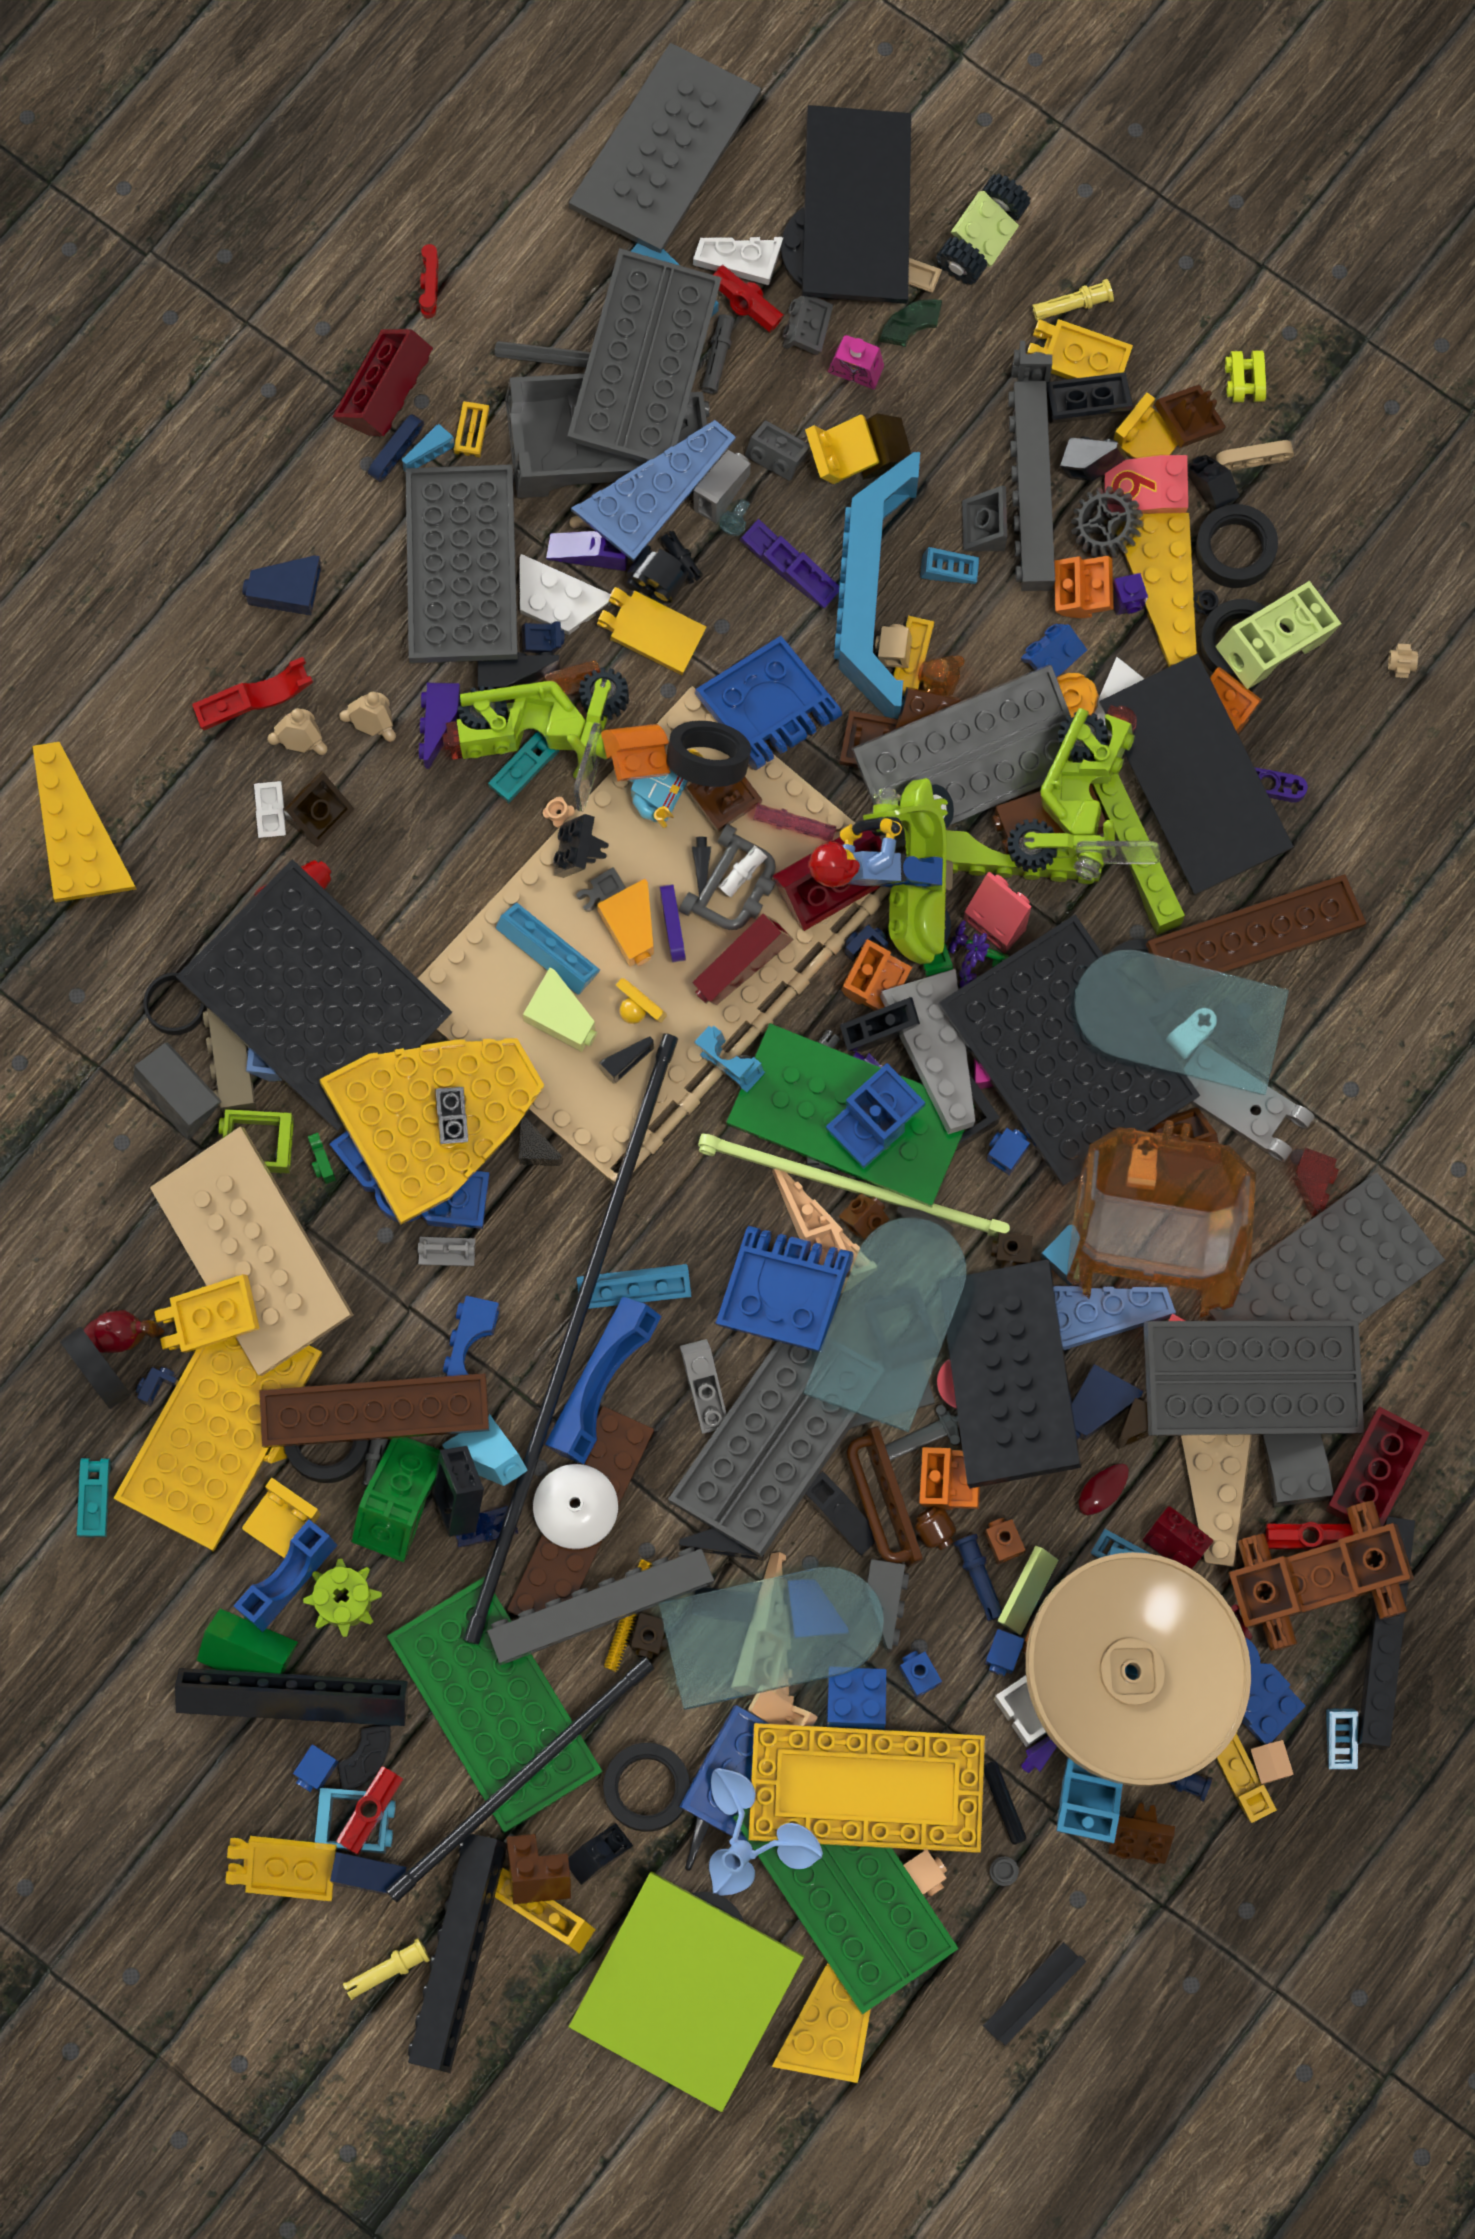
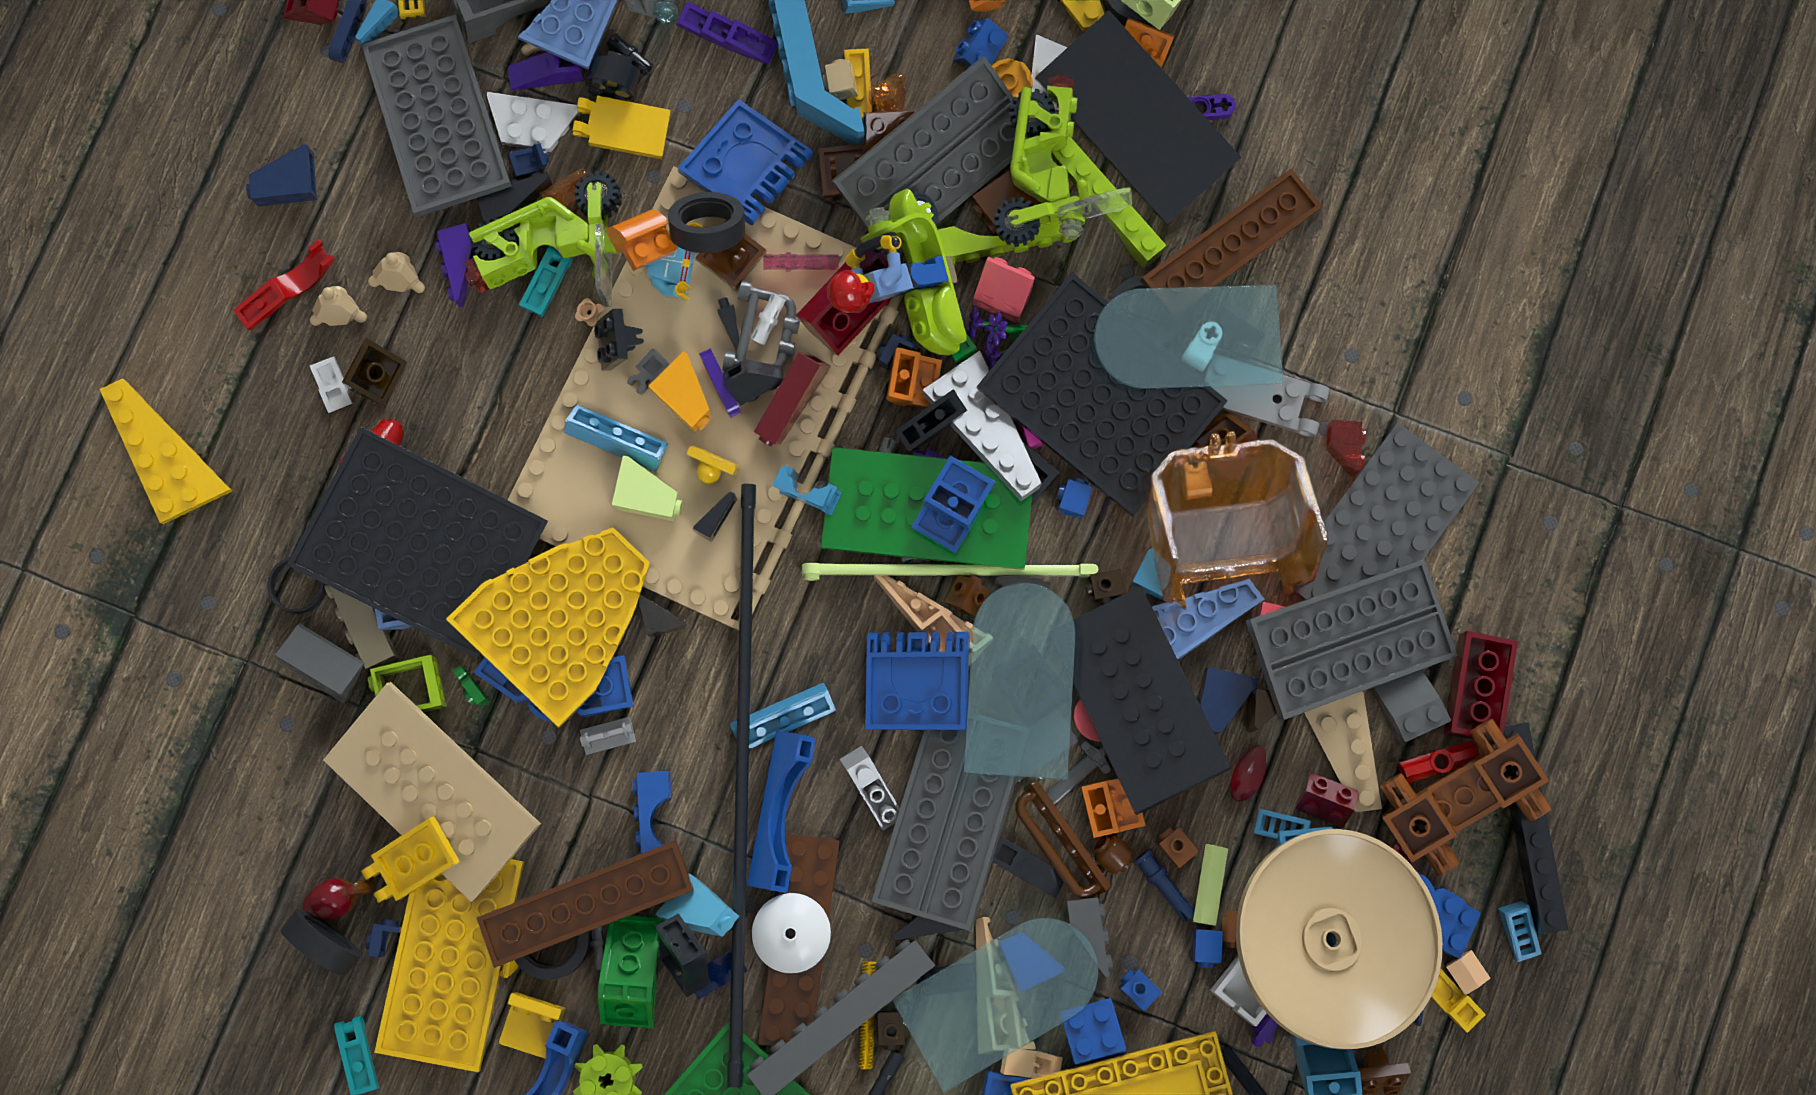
camera: 20 degrees left, 5 degrees up
(451, 1115) = (575, 616): slope -> none
(706, 928) = (751, 379): none -> black slope

